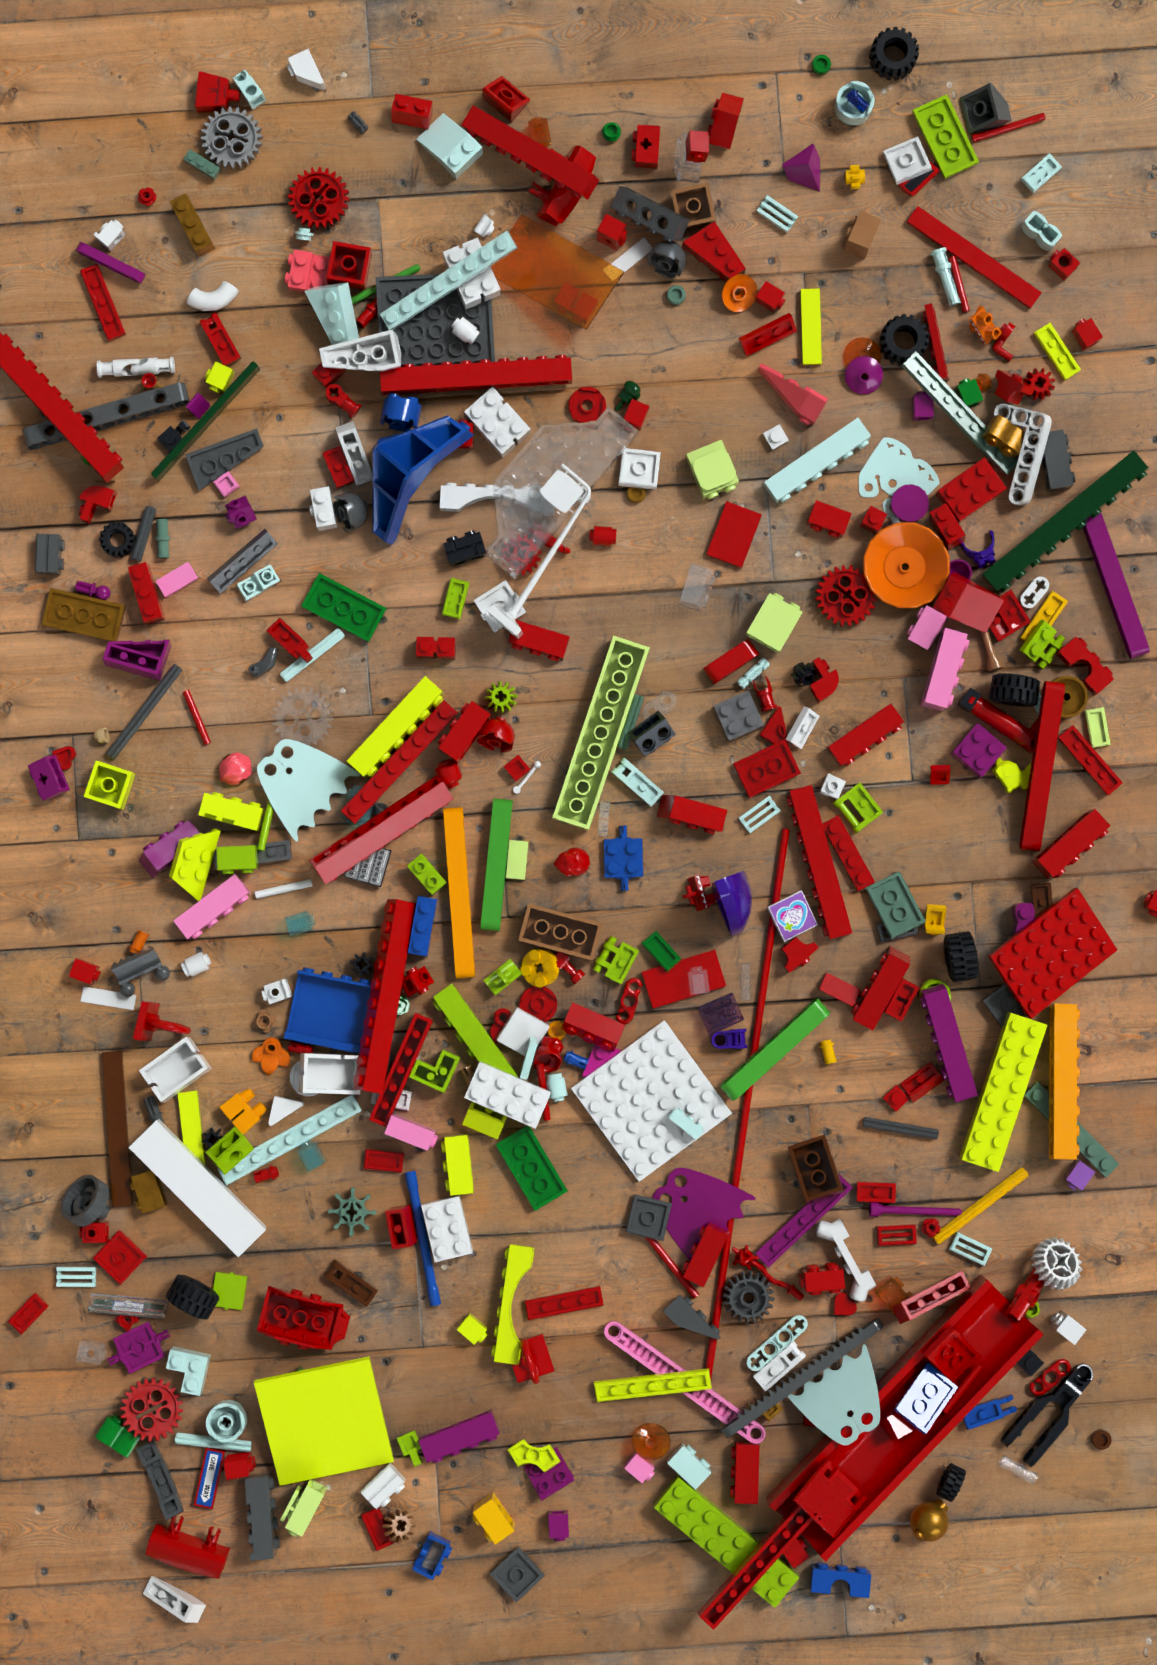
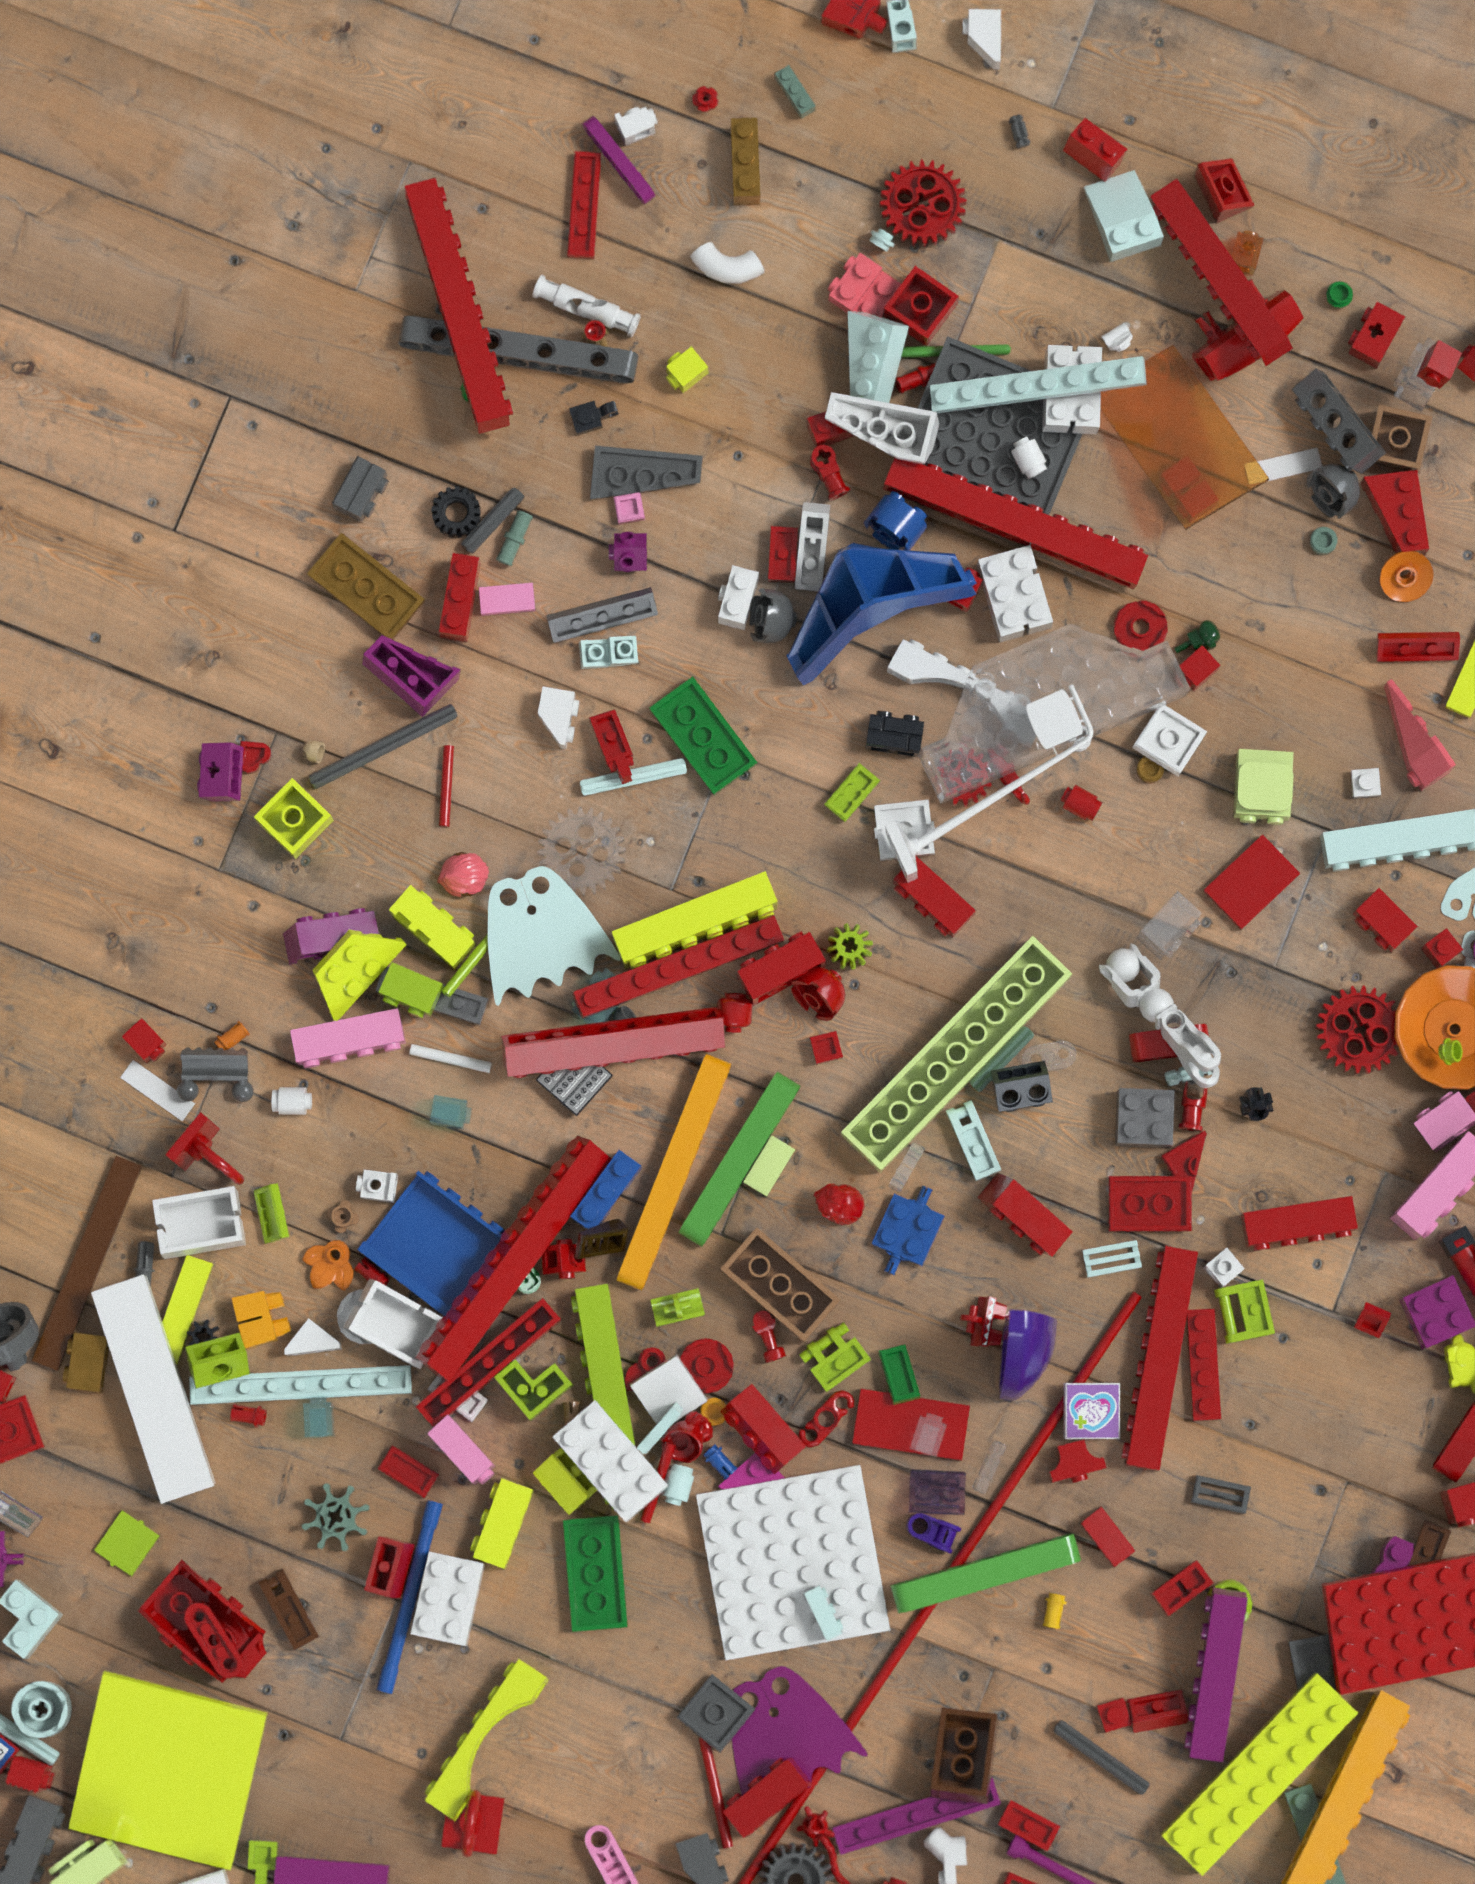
camera: 30 degrees right, 5 degrees down
(95, 497) = (455, 445): red brick -> none
(101, 592) = (402, 568): magenta axle -> none
(192, 1297) = (77, 1525): black tyre -> none
(198, 405) = (641, 392): magenta slope -> none
(205, 421) = (641, 416): dark green tile -> none
(218, 1041) = (271, 1213): none -> lime plate
(220, 340) = (710, 323): red plate -> none
(227, 154) = (864, 58): light grey gear -> none
(243, 637) = (556, 713): none -> white slope
(265, 664) = (566, 761): dark grey arm -> none
(319, 1333) = (215, 1653): none -> red plate
(359, 959) = (505, 1211): black gear -> none
(427, 874) = (644, 1128): lime brick -> none
(442, 954) = (613, 1239): none -> dark brown slope
(444, 647) = (807, 846): red piece -> none
(472, 1329) = (417, 1747): neon yellow brick -> none
(517, 789) = (813, 1075): white hinge -> none
(549, 966) = (717, 1315): yellow plate -> none
(564, 1302) = (551, 1771): red tile -> none
(612, 232) = (1278, 422): red brick -> none
(712, 642) = (1158, 1006): none -> white piece
(770, 297) = (1444, 600): red brick -> none
(774, 622) = (1249, 1019): yellowish green brick -> none
(802, 727) = (1222, 1173): white plate -> none
(827, 684) = (1279, 1132): red brick -> none
(881, 988) = (1162, 1561): red wedge -> none
(895, 905) = (1233, 1462): sand green tile -> none
(910, 582) = (1450, 1051): none -> lime plate
(935, 919) = (1276, 1505): yellow bracket -> none
(961, 956) = (1287, 1569): black tyre -> none

